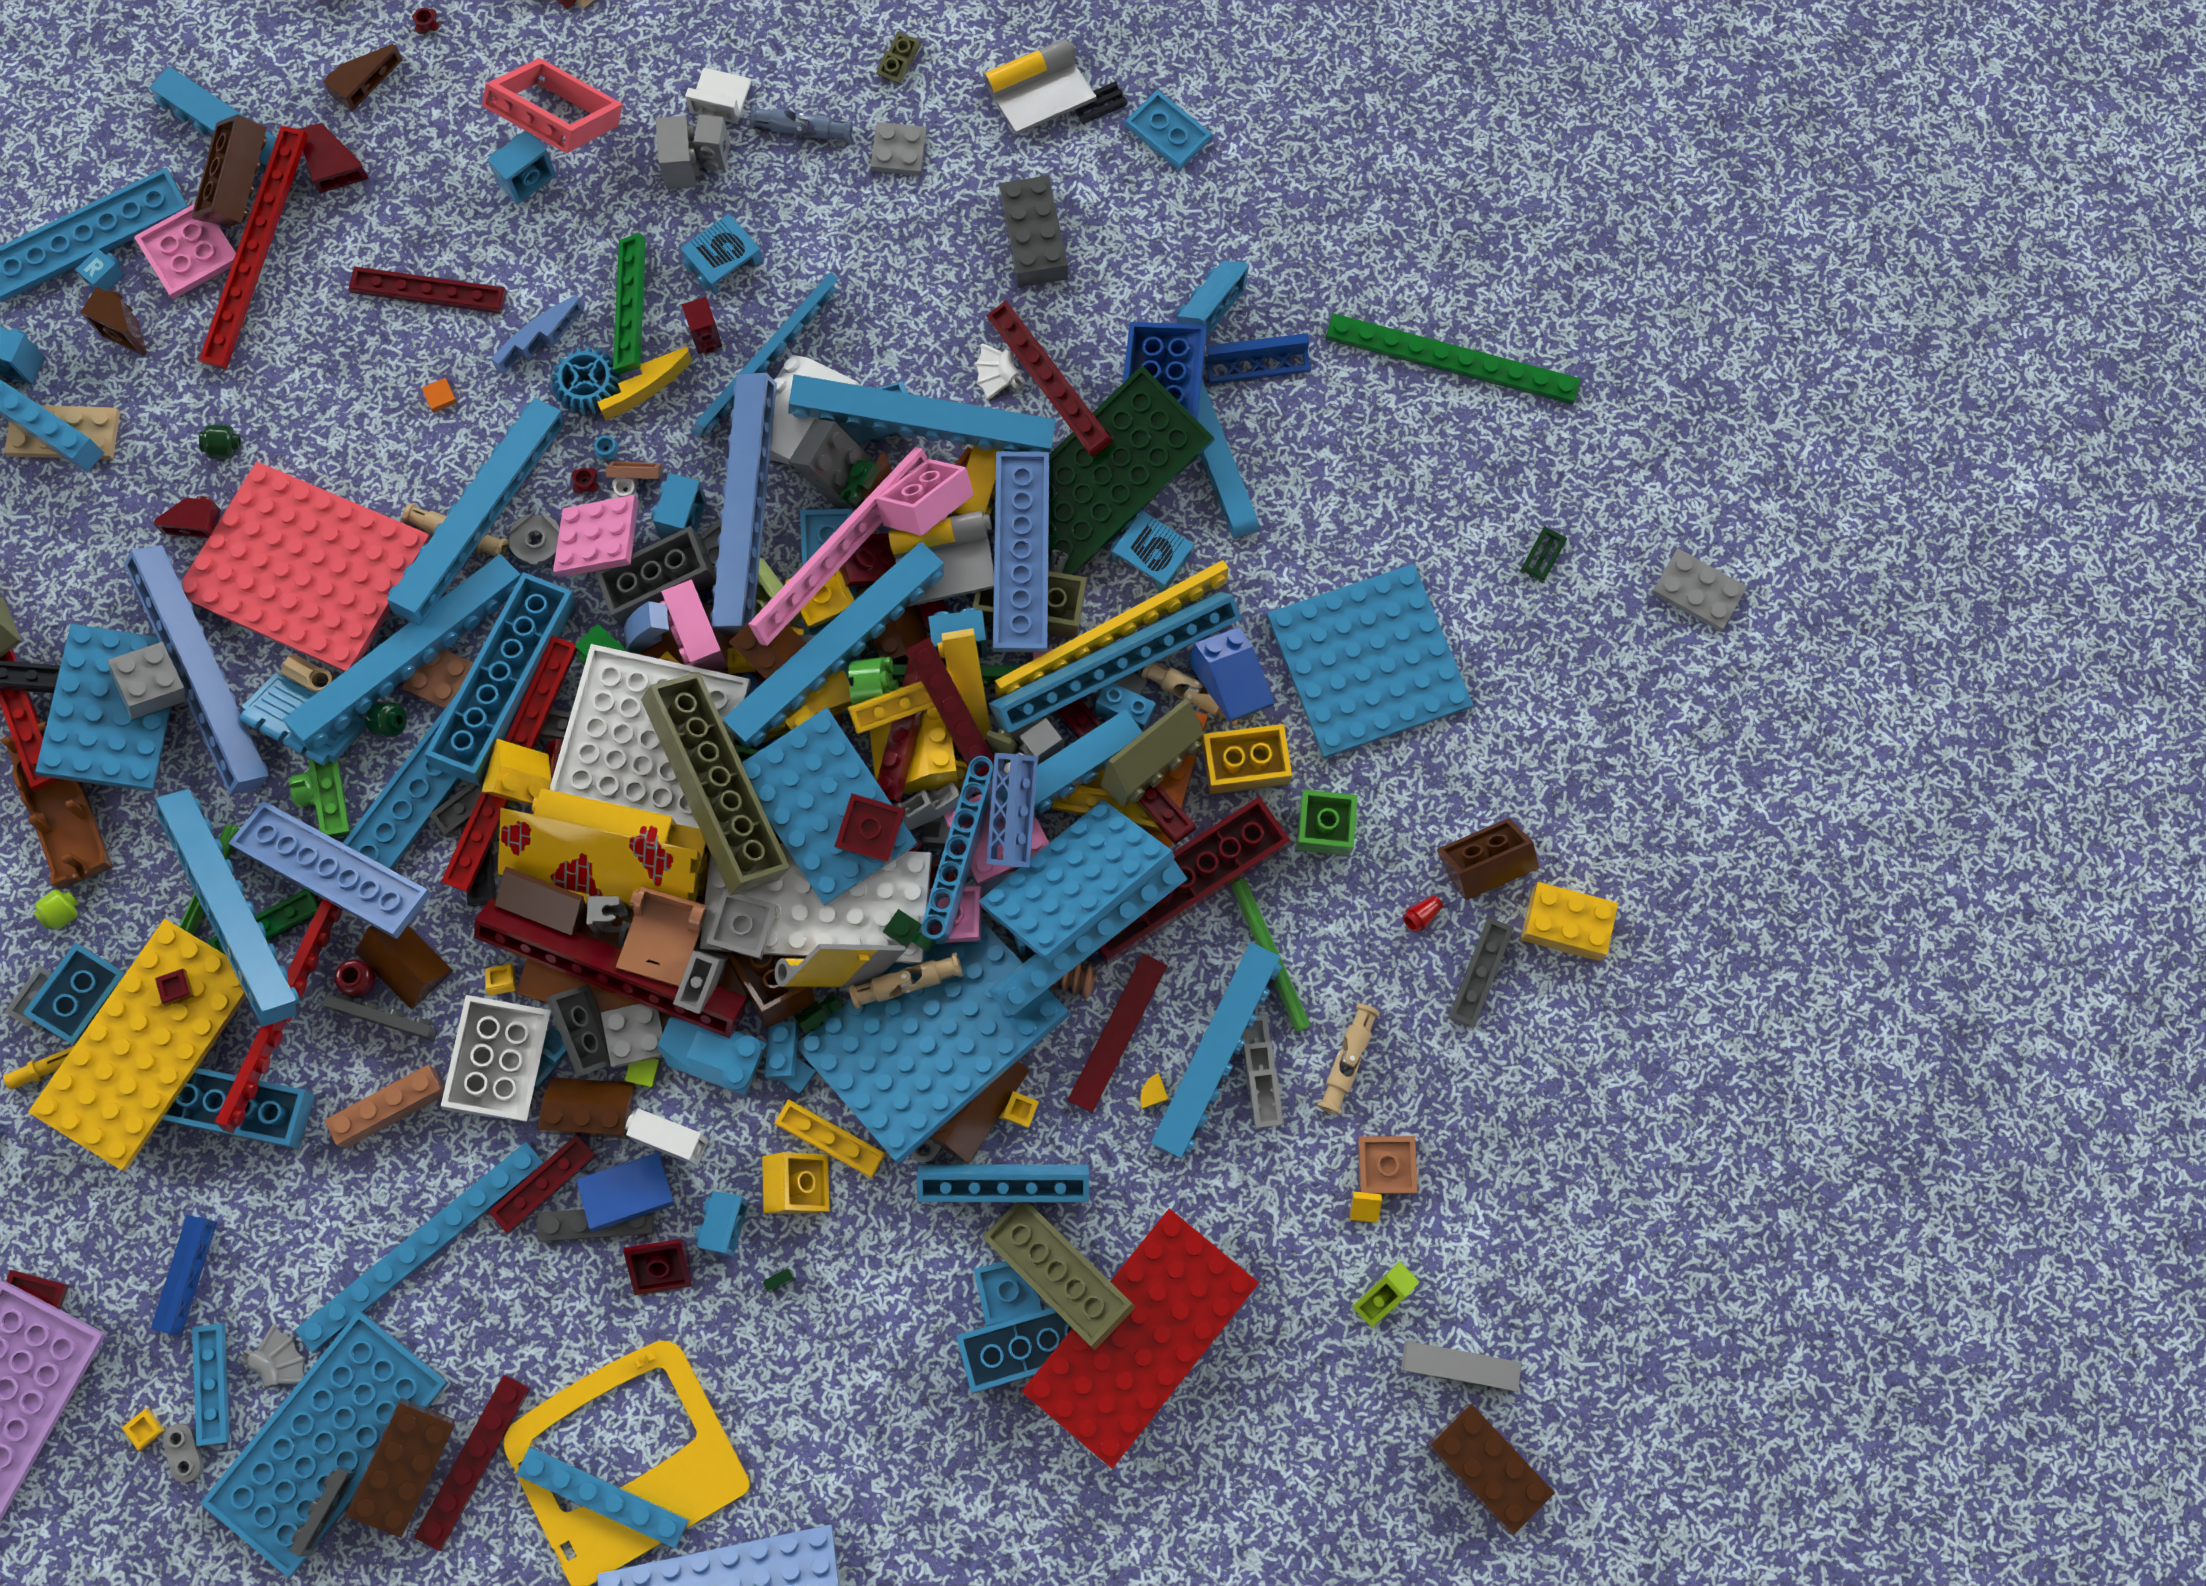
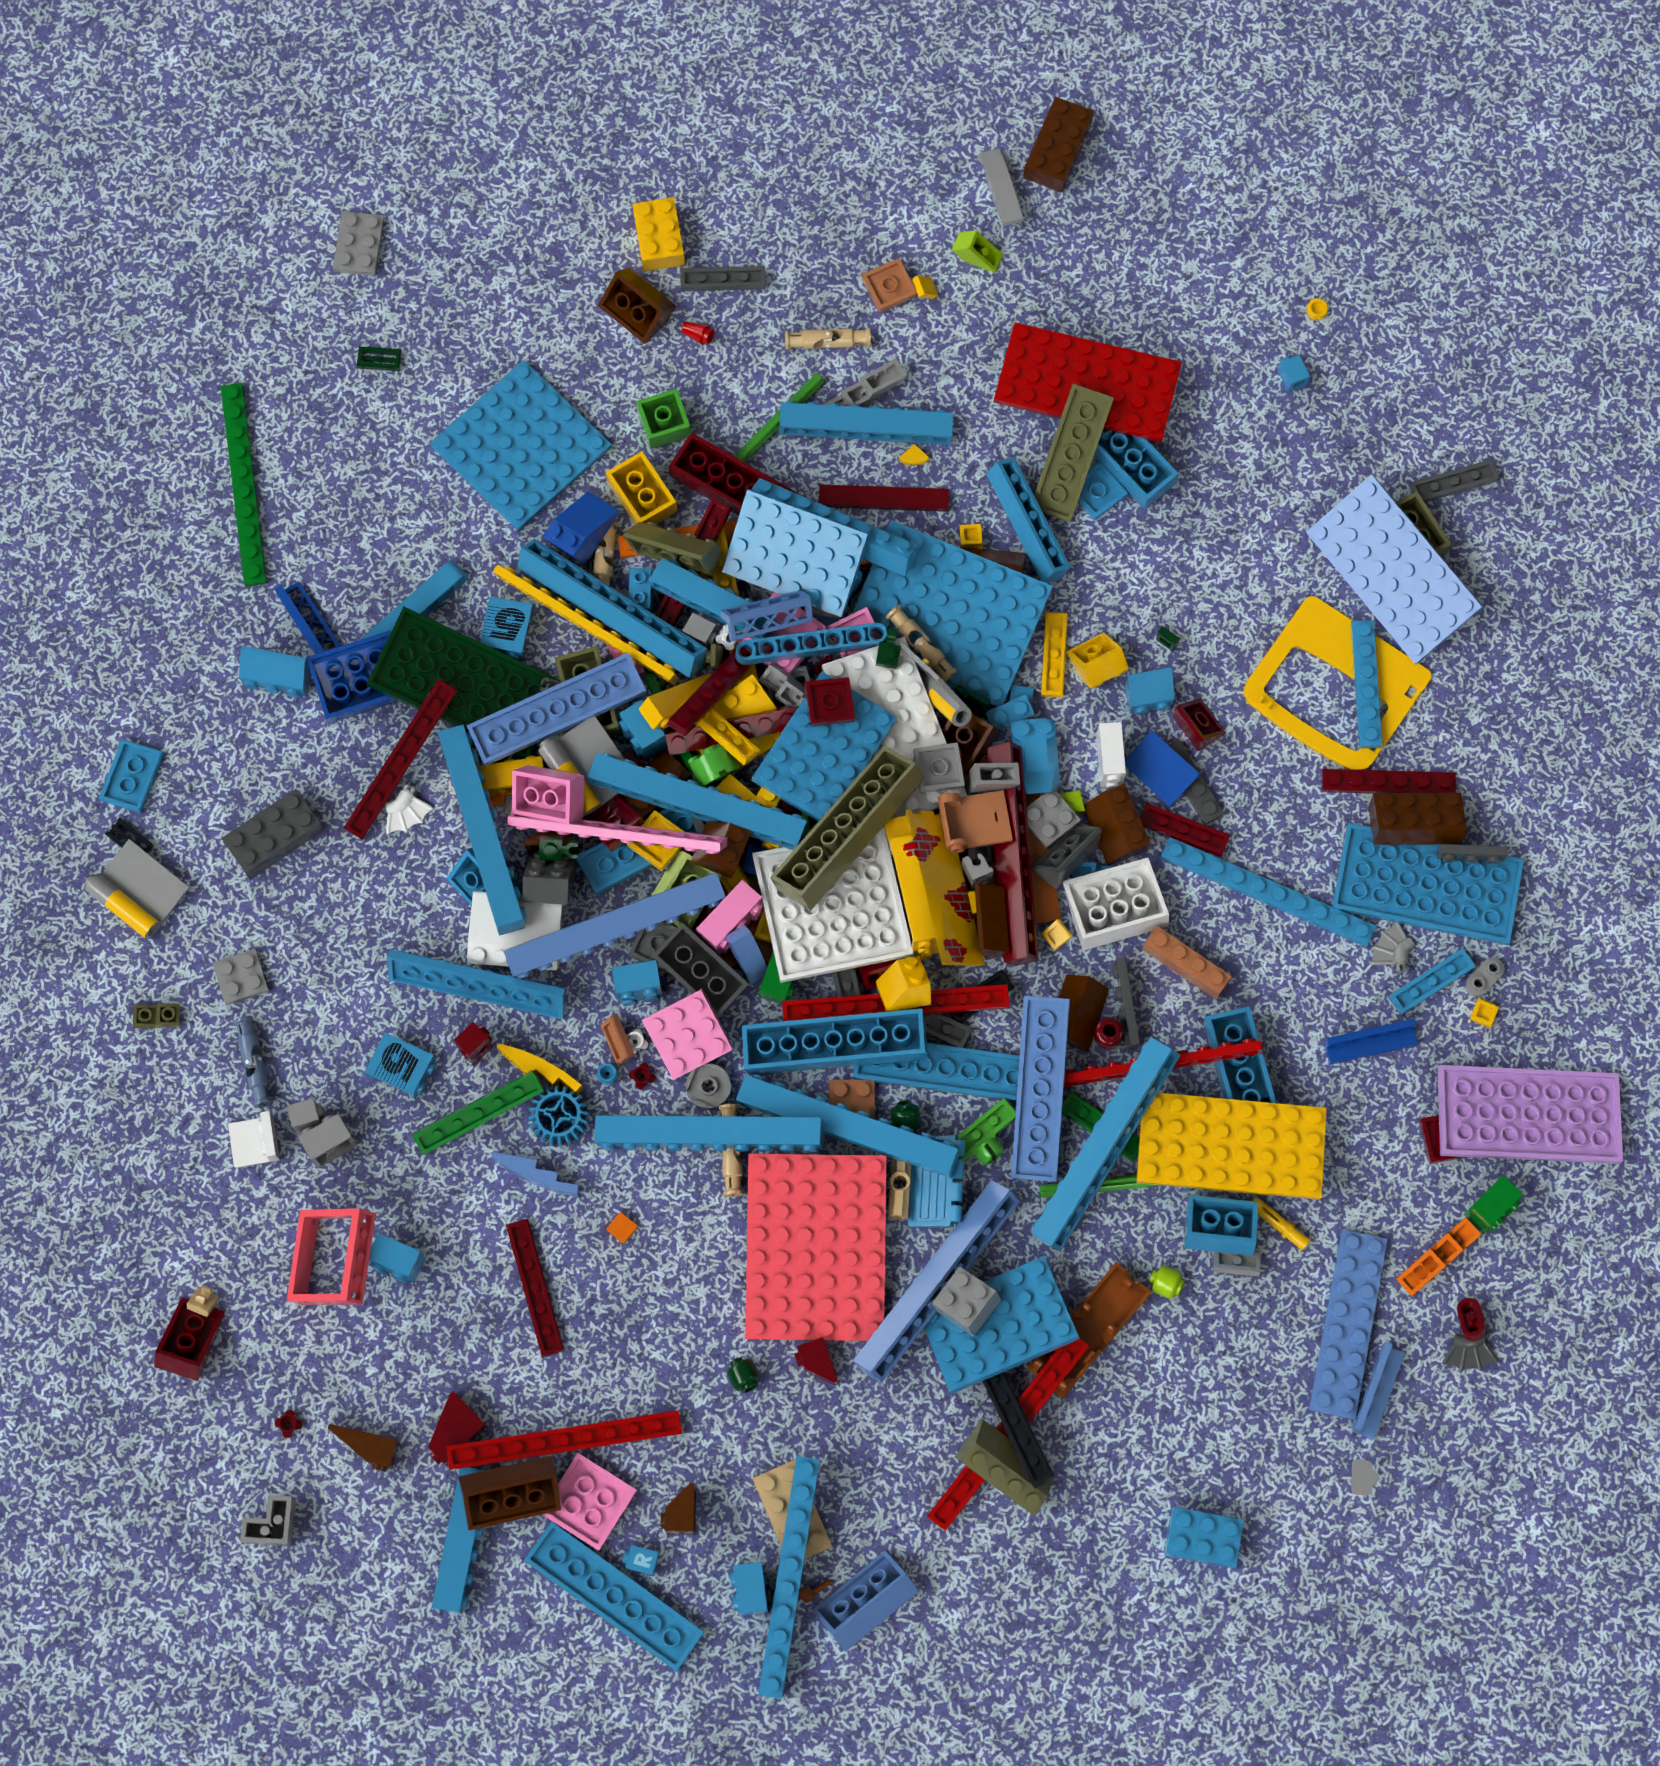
camera: 110 degrees left, 0 degrees up
(174, 987) = (1183, 1139): dark red tile -> none

